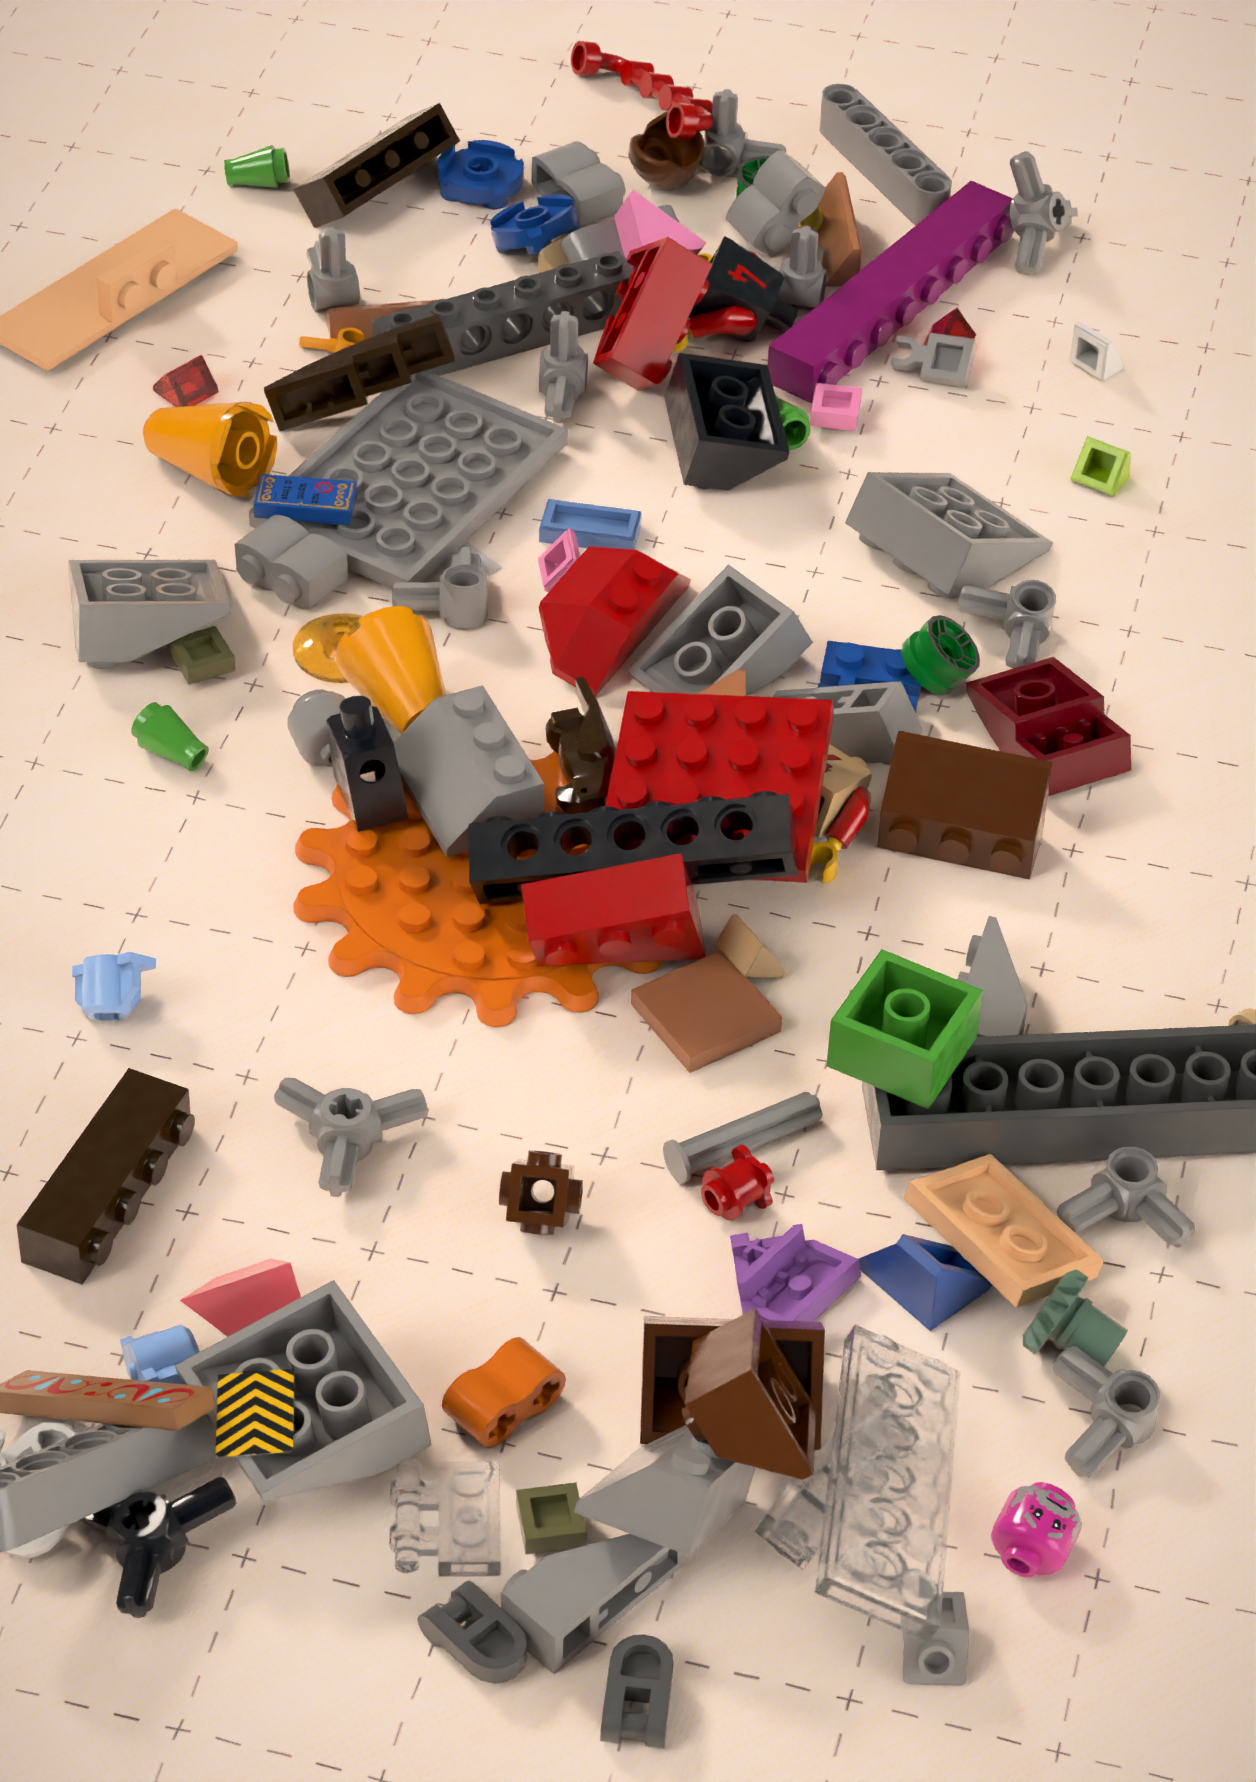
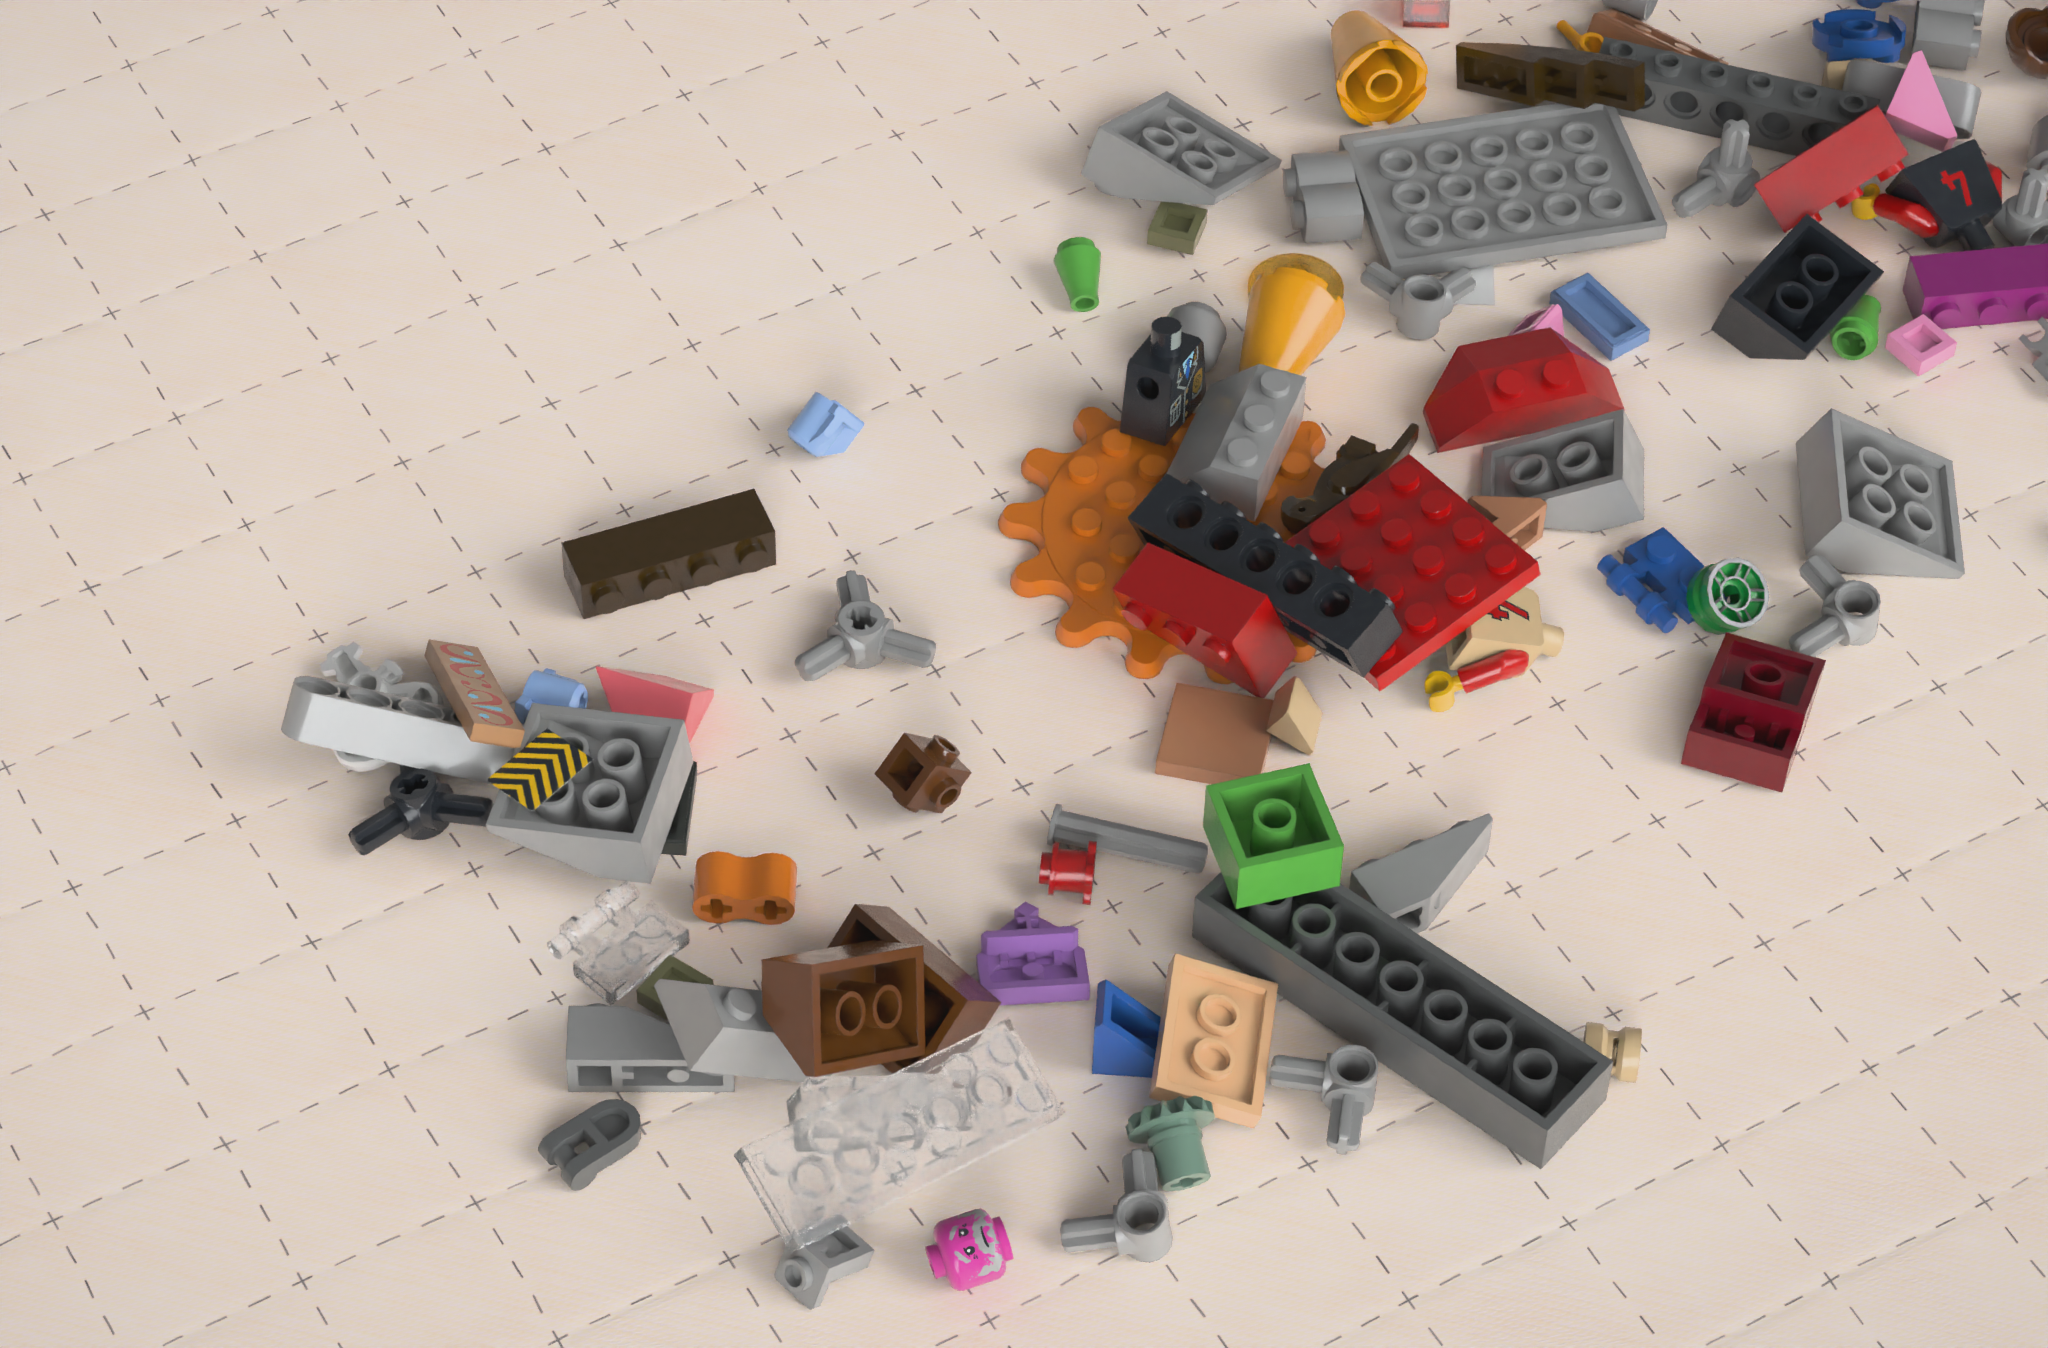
camera: 45 degrees right, 5 degrees up
(305, 499) = (1386, 152): blue tile -> none
(490, 1647) = (541, 1039): dark grey plate -> none
(865, 717) = (1591, 598): light grey slope -> none
(964, 804) = (1583, 722): reddish brown slope -> none

